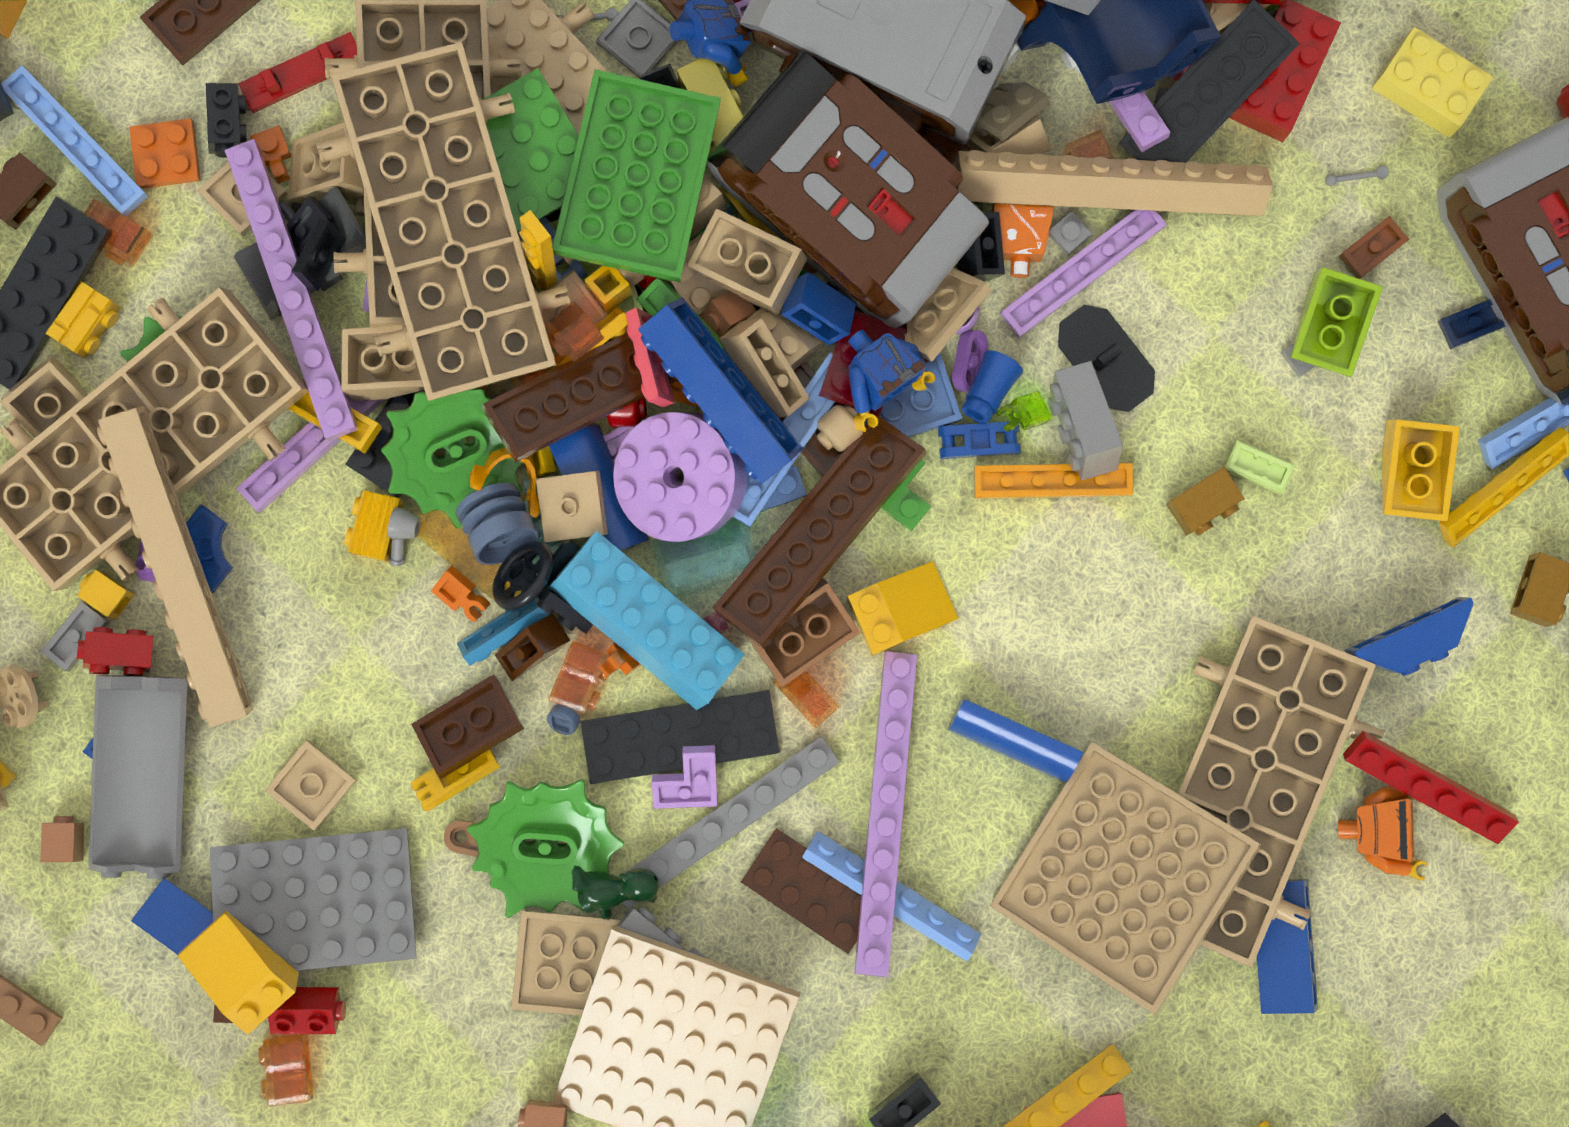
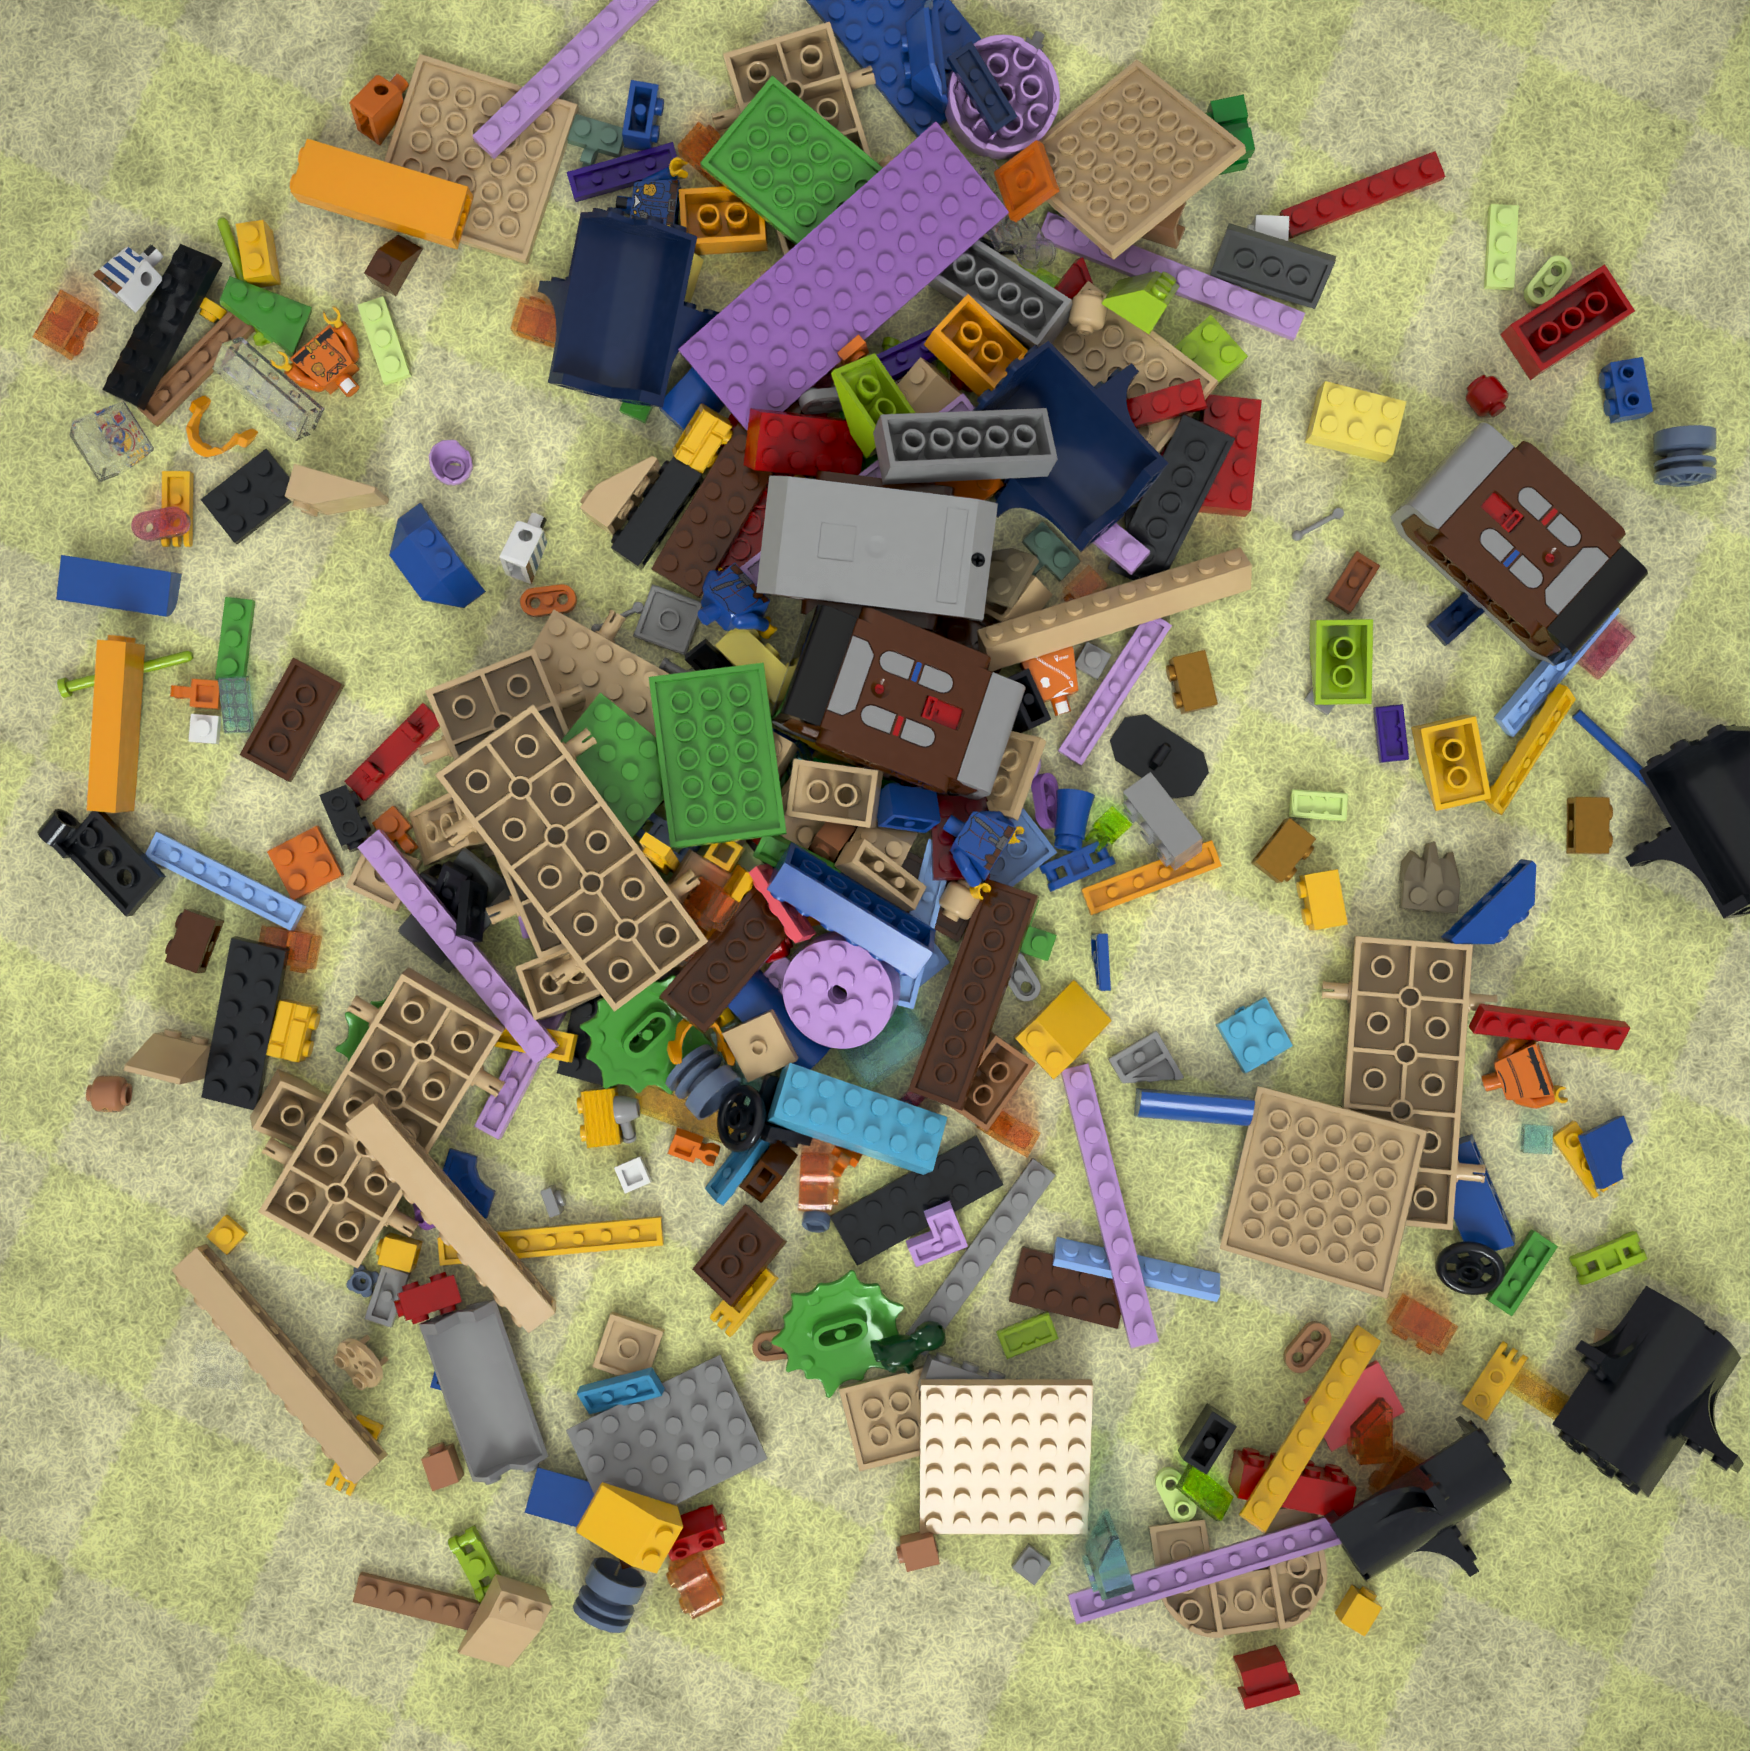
camera: 15 degrees left, 5 degrees up
(45, 611) = (355, 1284): none -> sand blue plate
(59, 964) = (476, 1563): none -> lime plate
(64, 1036) = (506, 1621): none -> tan slope
(185, 1048) = (609, 1598): none -> sand blue wheel
(285, 826) = (620, 1390): none -> dark azure plate
(290, 597) = (553, 1200): none -> light grey plate
(295, 646) = (573, 1238): none -> yellow plate
(385, 600) = (633, 1174): none -> white plate
(747, 925) = (1027, 1335): none -> lime plate
(878, 535) = (1024, 973): none -> light grey plate
(969, 545) = (1100, 960): none -> blue tile
(979, 675) = (1145, 1061): none -> light grey wing
(1049, 1050) = (1310, 1349): none -> medium nougat plate
(1064, 107) = (1050, 552): none -> sand green plate
(1106, 688) = (1254, 1035): none -> medium azure plate
(1167, 290) = (1191, 682): none -> pearl gold brick
(1183, 1068) = (1421, 1324): none -> clear orange brick
(1229, 568) = (1322, 900): none -> yellow brick
(1270, 1005) = (1470, 1268): none -> black plate
(1312, 1050) = (1522, 1272): none -> bright green plate
(1351, 590) = (1429, 881): none -> dark tan plate
(1362, 419) = (1391, 733): none -> dark purple plate
(1376, 909) = (1536, 1139): none -> clear light blue plate
(1413, 1069) = (1608, 1258): none -> lime plate
(1421, 950) = (1570, 1146): none -> yellow hinge
(1447, 947) = (1605, 1149): none -> blue tile

